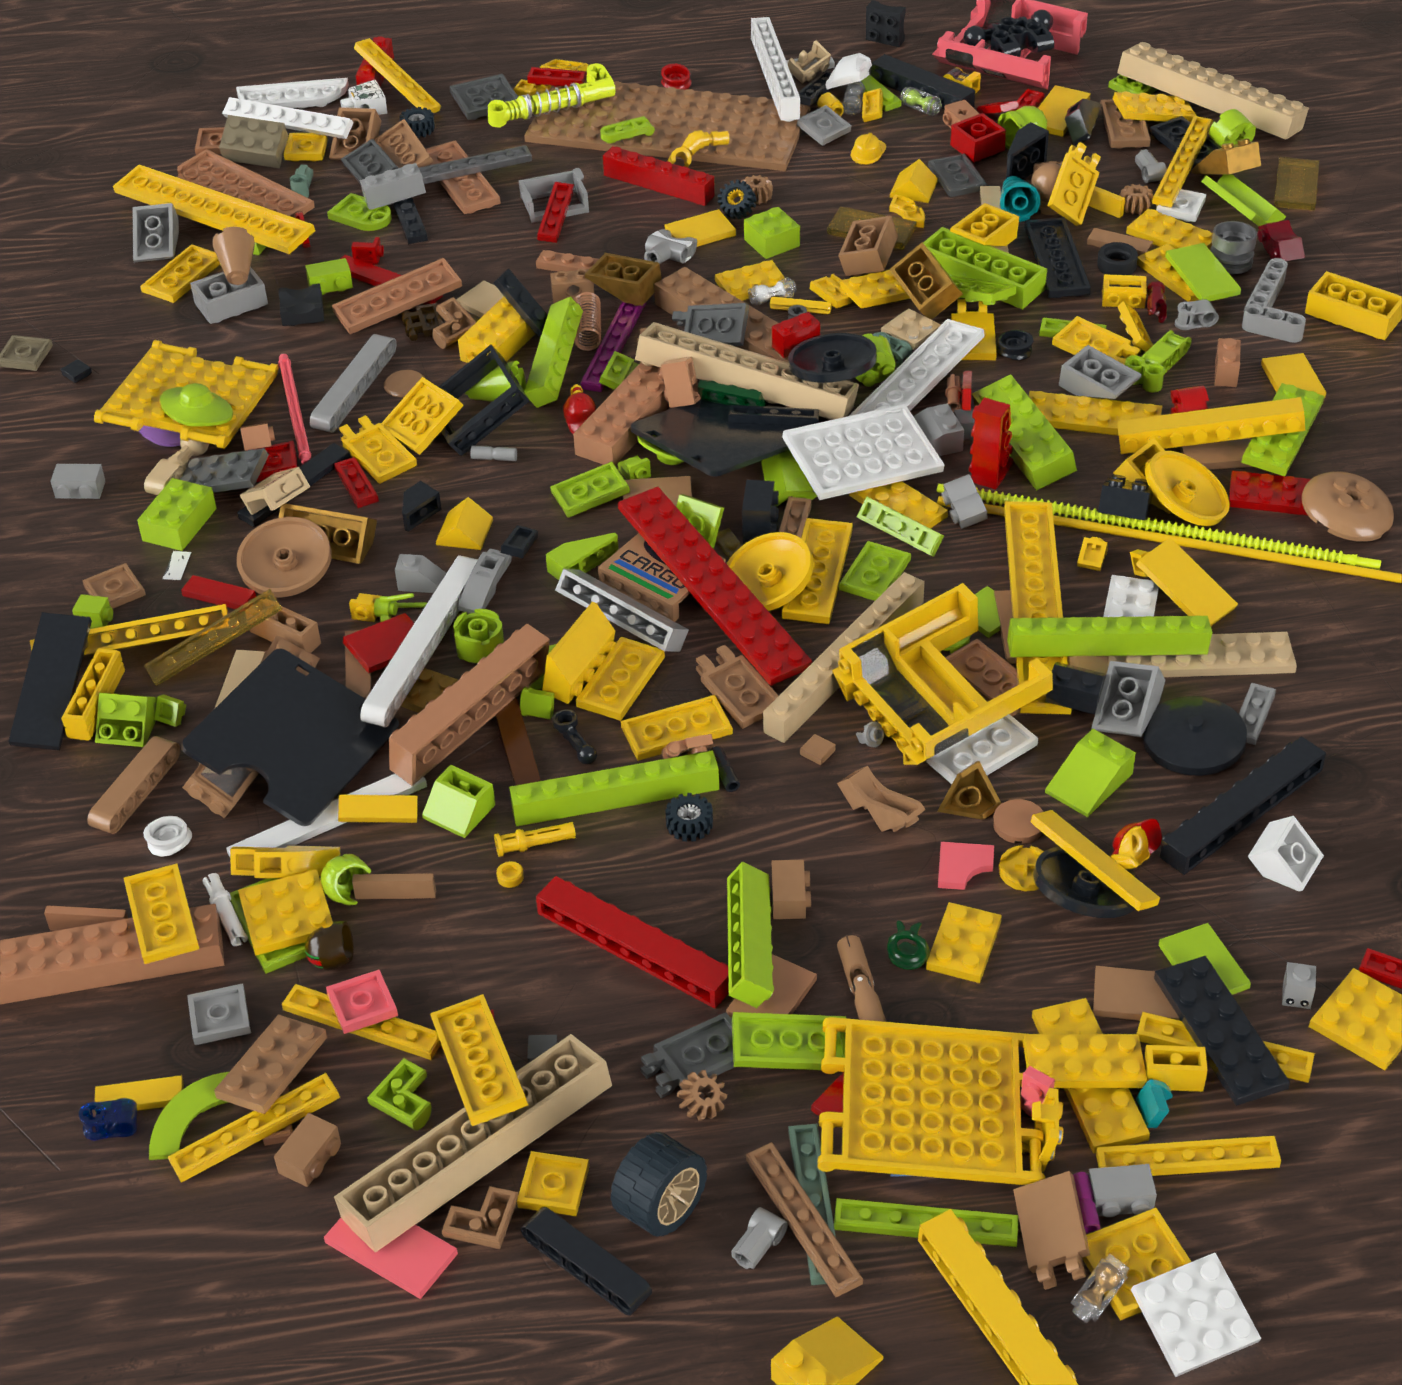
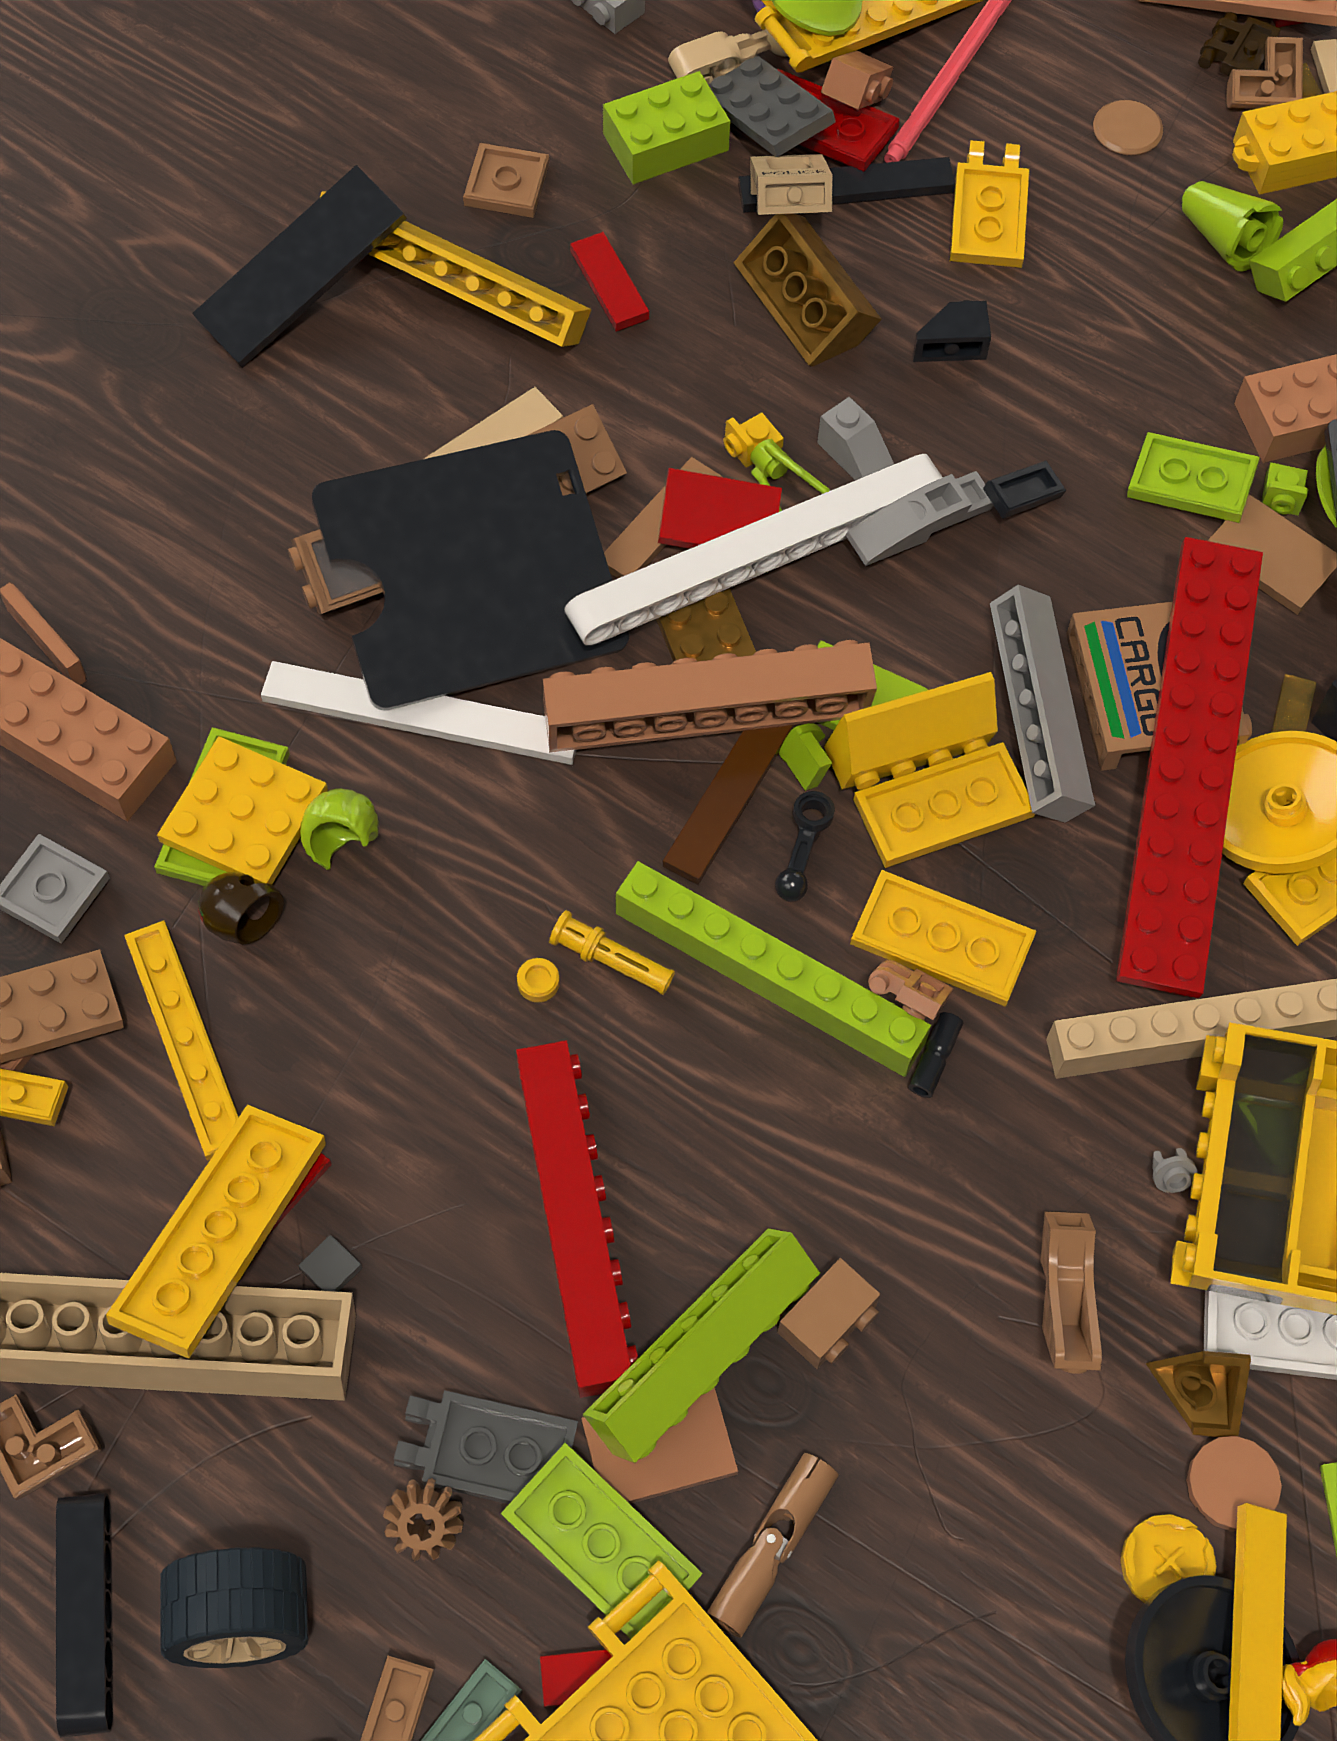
camera: 40 degrees right, 20 degrees up
(94, 607) = (444, 199): lime brick -> none
(100, 677) = (331, 321): yellow brick -> none
(125, 719) = (338, 383): lime slope -> none
(134, 785) = (258, 486): medium nougat beam -> none
(161, 913) = (86, 706): yellow plate -> none
(167, 835) = (230, 588): white piece -> none
(169, 710) = (395, 412): lime tile -> none
(176, 565) = (606, 201): white sticker -> none
(213, 637) = (528, 347): clear yellow tile -> none
(226, 912) = (192, 733): white pin -> none
(280, 862) = (303, 744): yellow slope -> none
(284, 556) = (720, 290): medium nougat dish -> none
(291, 627) = (621, 394): medium nougat brick -> none
(353, 383) = (1059, 81): light grey beam -> none
(356, 482) = (921, 238): red tile -> none
(361, 1001) = (194, 1017): coral plate -> none
(377, 808) = (479, 752): yellow tile -> none
(394, 886) = (391, 882): medium nougat tile -> none
(396, 1095) = (109, 1177): lime brick -> none
(421, 415) = (1083, 199): yellow plate -> none
(459, 801) = (571, 826): lime slope -> none
(465, 526) = (984, 412): yellow slope -> none
(477, 634) = (830, 597): lime brick -> none
(493, 414) = (1172, 269): black window -> none
(496, 453) = (1125, 320): light grey piece -> none
(553, 1183) = (155, 1470): yellow plate -> none
(578, 408) = (1300, 337): red hair -> none
(581, 554) = (1078, 574): lime slope -> none
(693, 807) = (839, 1082): black bush -> none
(702, 515) = (1277, 646): lime tile -> none
(736, 686) = (1076, 946): medium nougat tile -> none
(817, 749) = (1084, 1129): medium nougat tile -> none
(908, 955) = (884, 1546): dark green piece -> none
(962, 862) = (1092, 1475): coral tile -> none
(964, 942) = (971, 1599): yellow plate -> none

